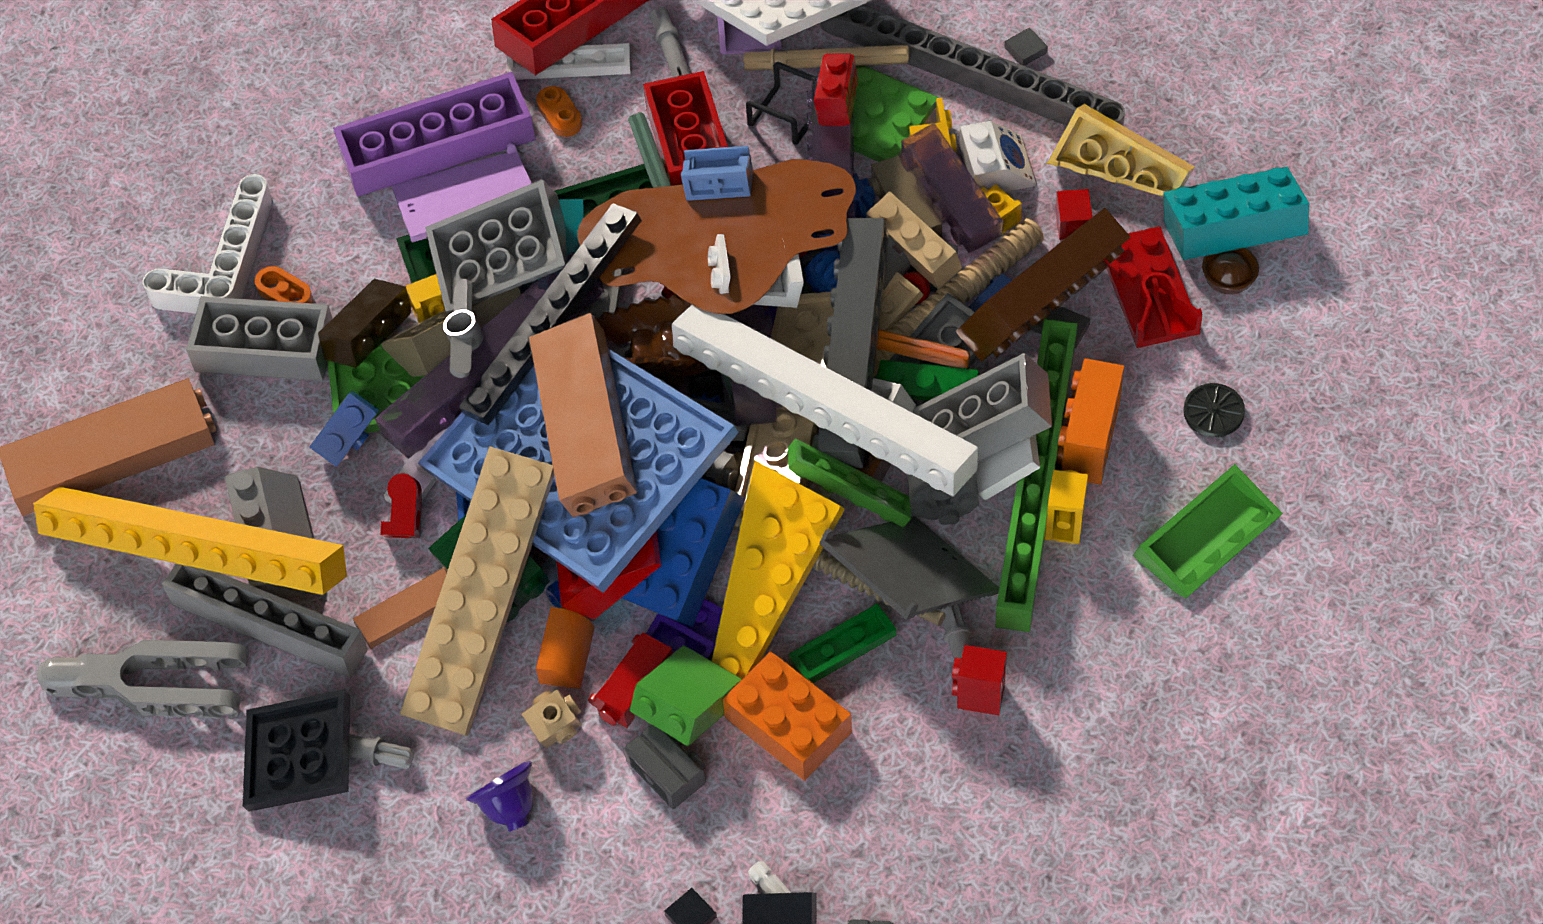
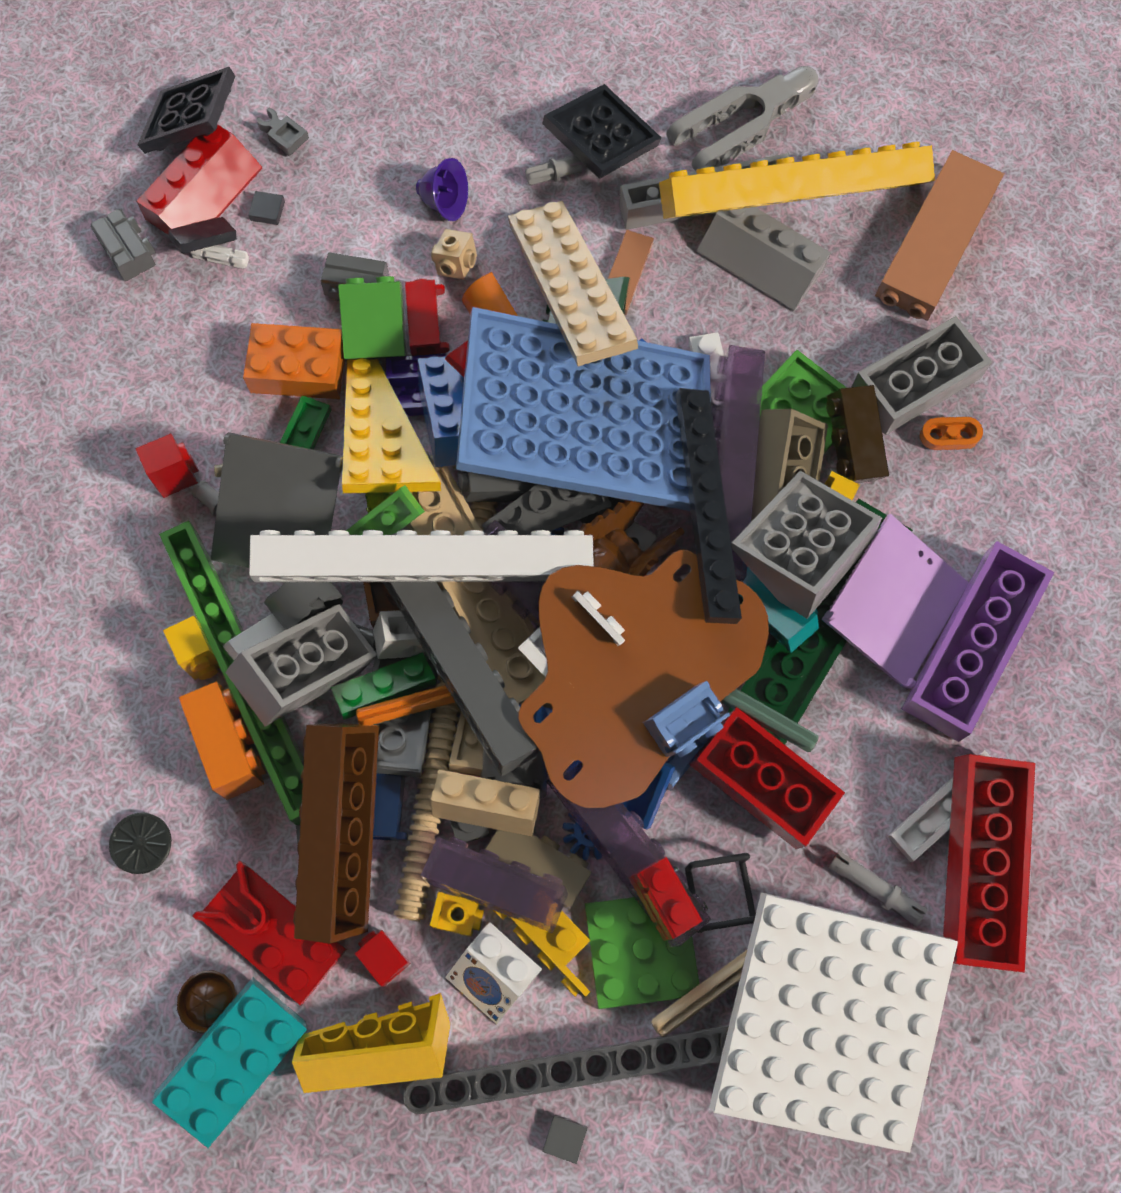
camera: 135 degrees right, 15 degrees up
(233, 259) = (1022, 428): white beam -> none
(344, 429) = (785, 342): blue brick -> none
(405, 508) = (689, 324): red leg -> none
(462, 330) = (754, 431): light grey piece -> none
(558, 108) = (910, 751): orange plate -> none
(582, 416) = (595, 417): nougat brick -> none
(1207, 532) = (78, 720): bright green slope -> none

